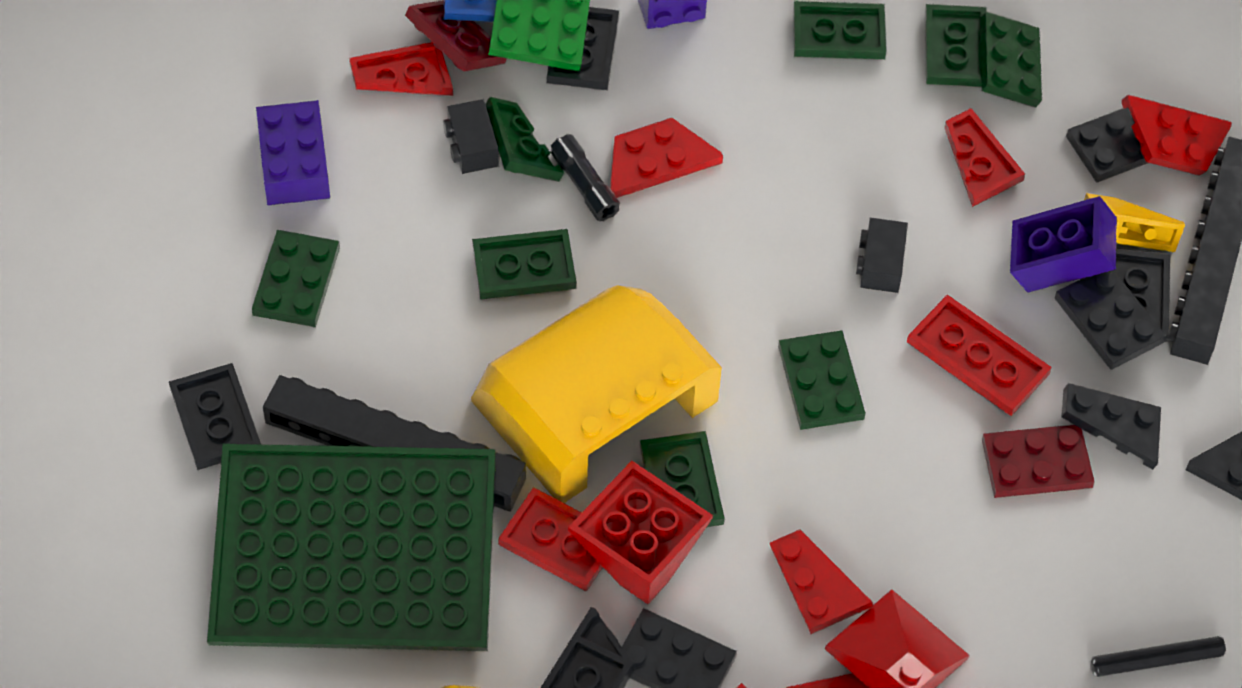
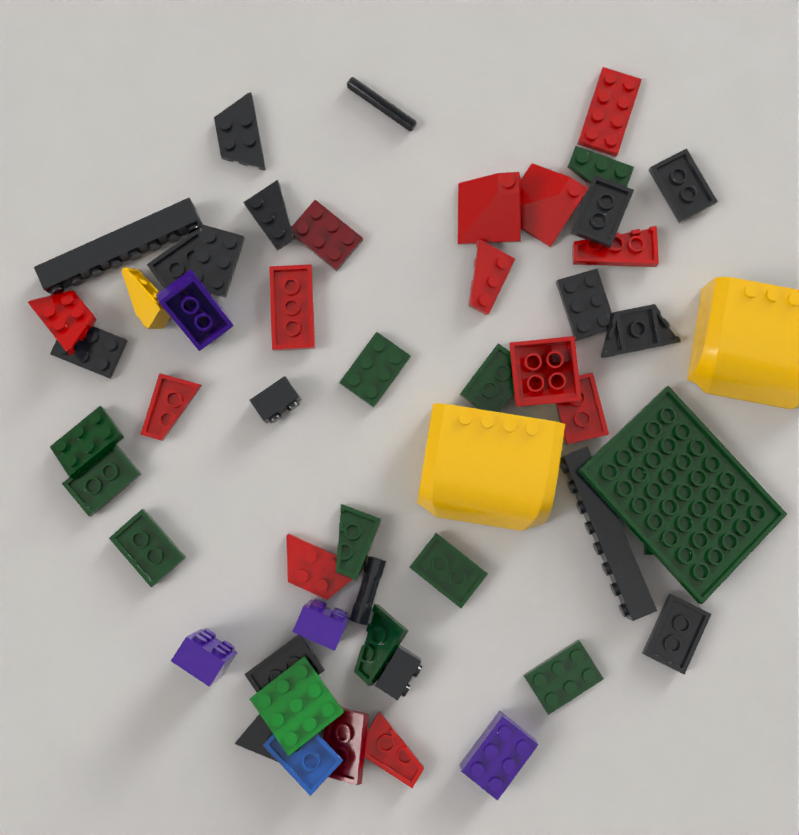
camera: 130 degrees left, 25 degrees up
(596, 94) = (321, 623): none -> dark purple brick
(649, 206) = (355, 540): none -> dark green wing

